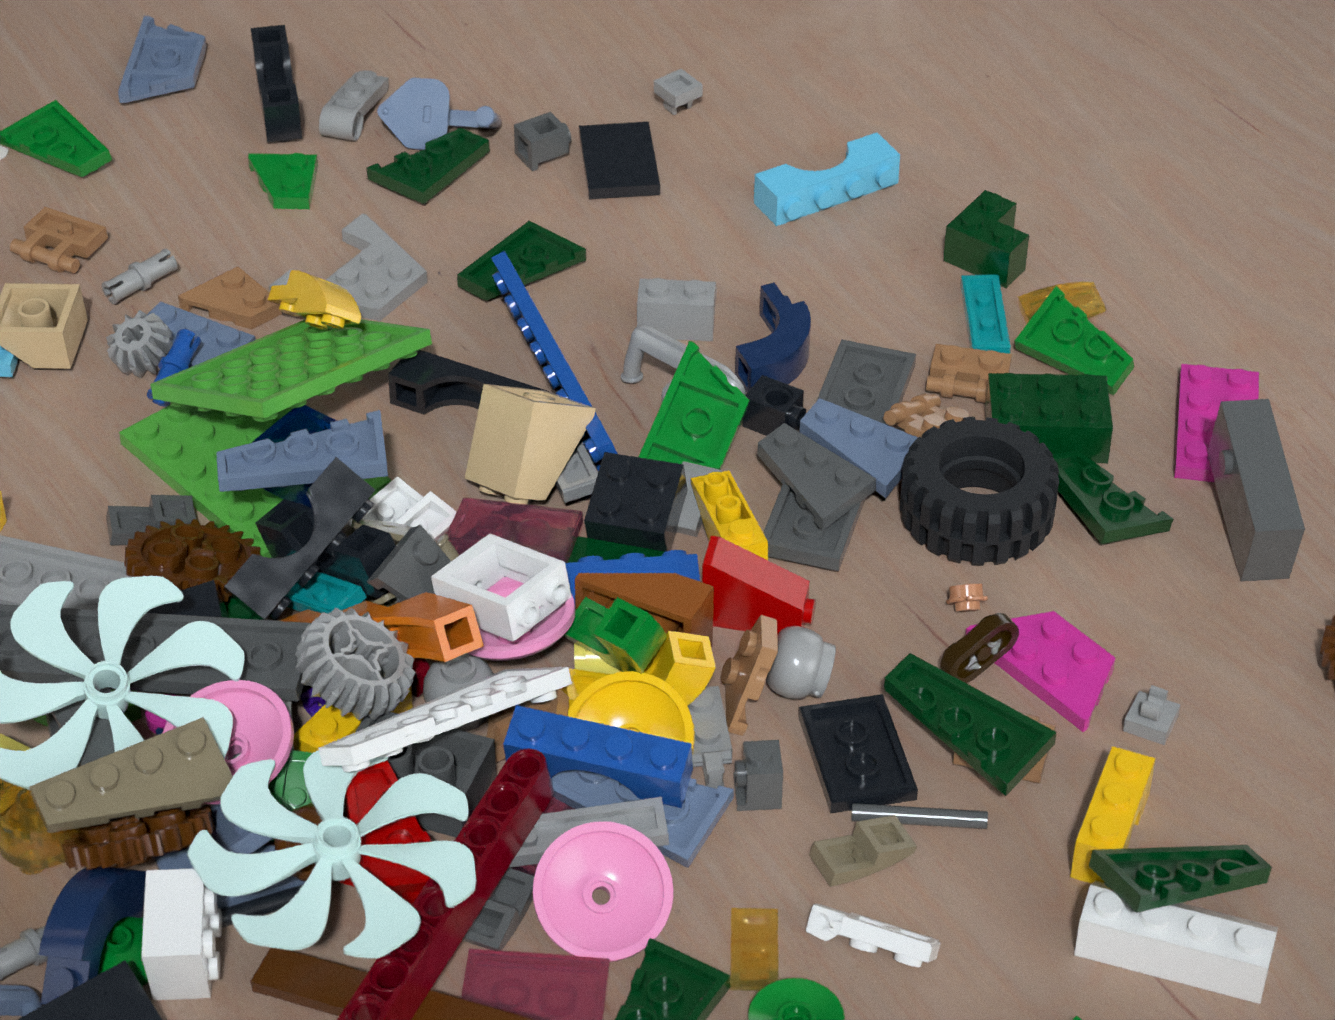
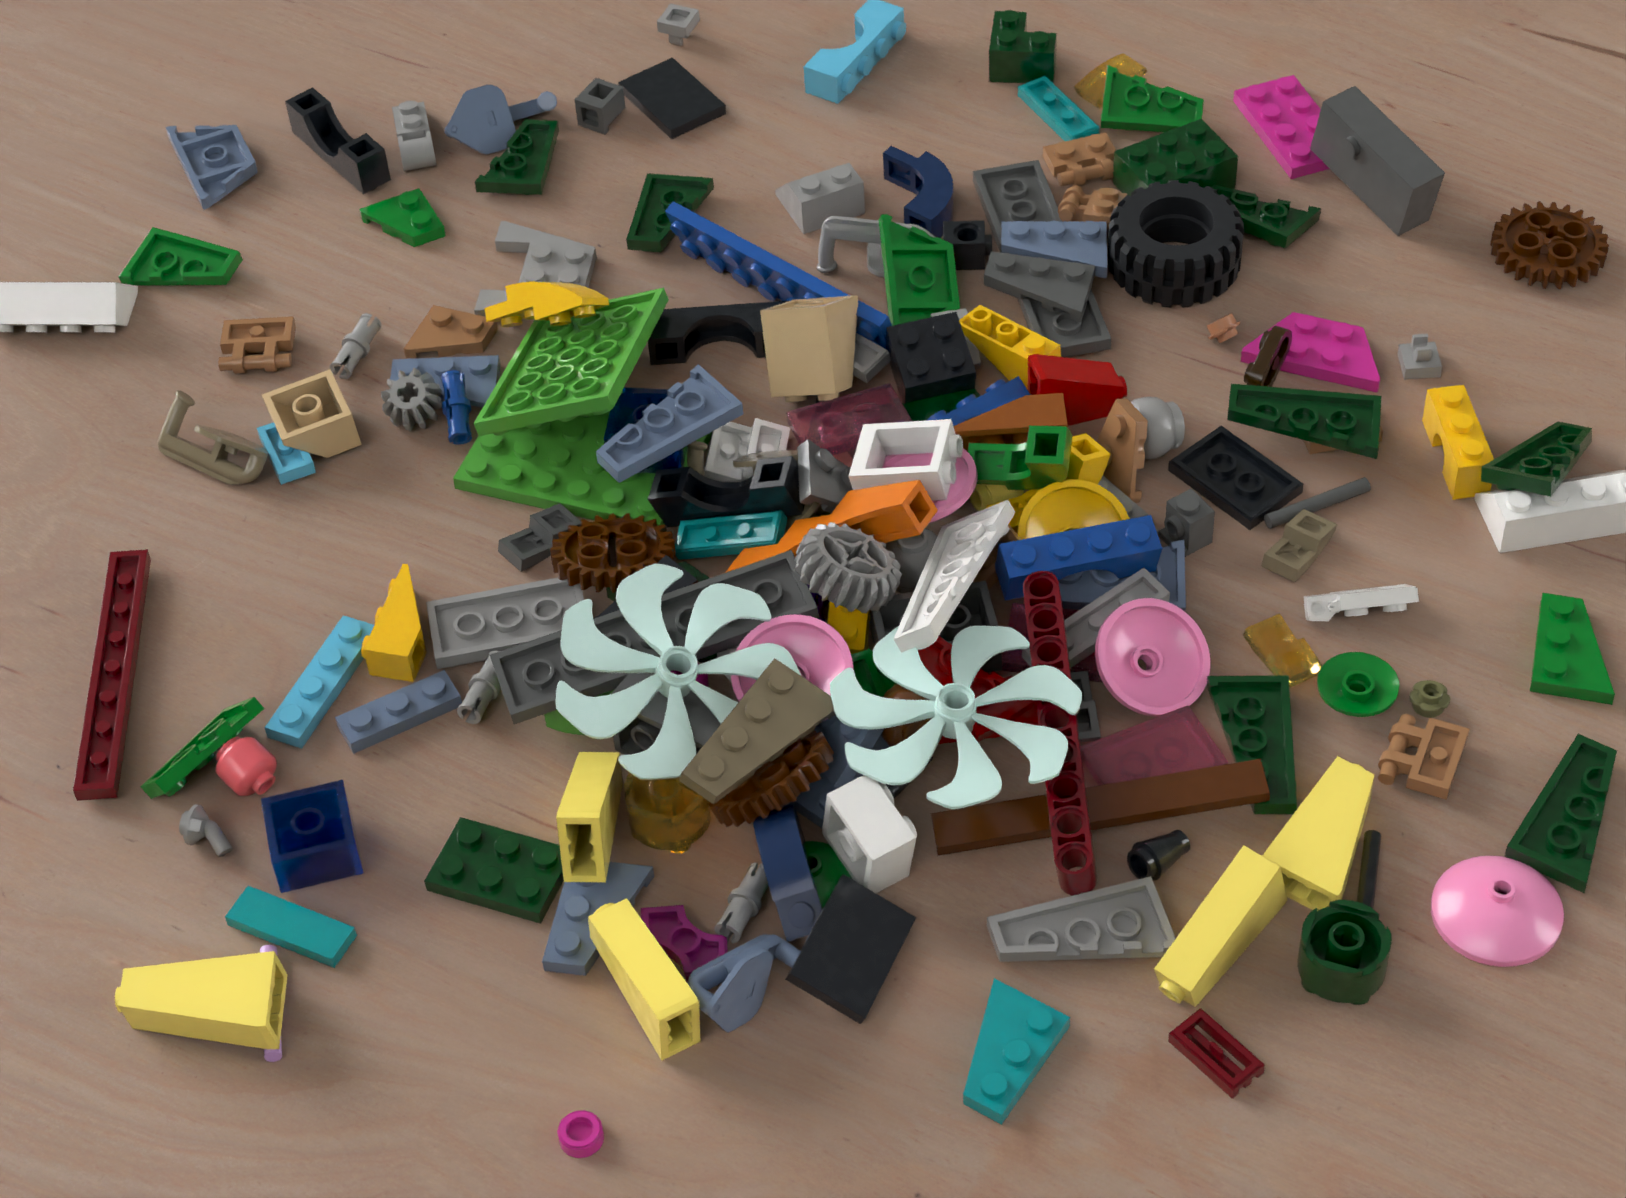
camera: 25 degrees left, 5 degrees up
(264, 581) = (724, 450): black arch -> none

